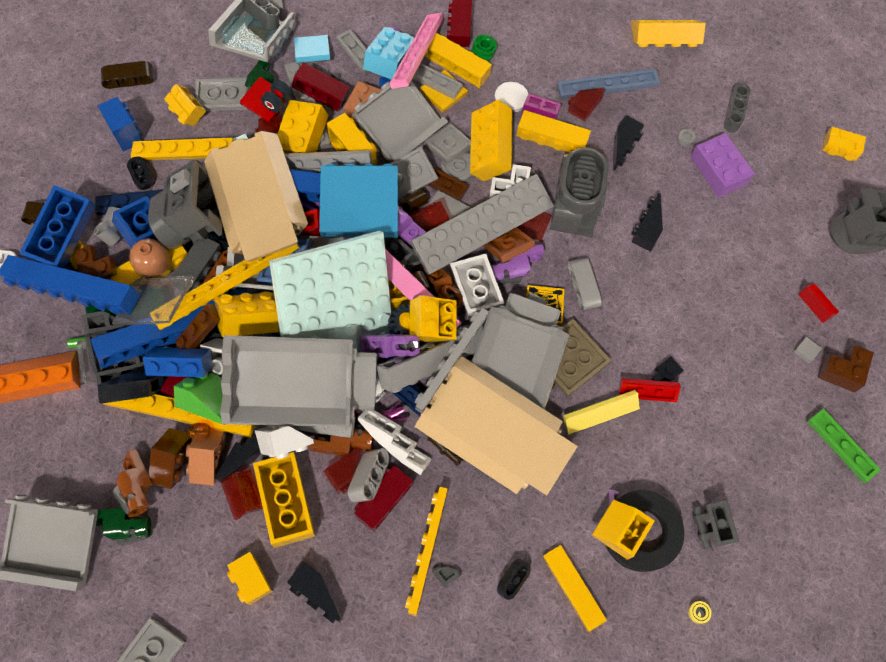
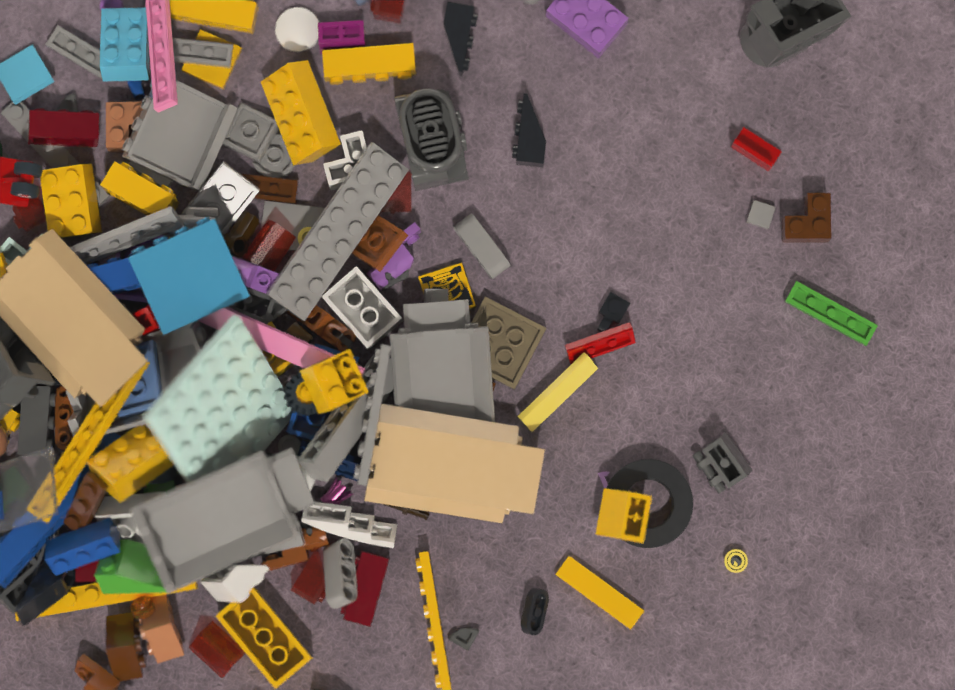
camera: 15 degrees left, 15 degrees up
(239, 458) = (196, 614): black slope -> none
(390, 345) = (299, 430): medium lavender plate -> none

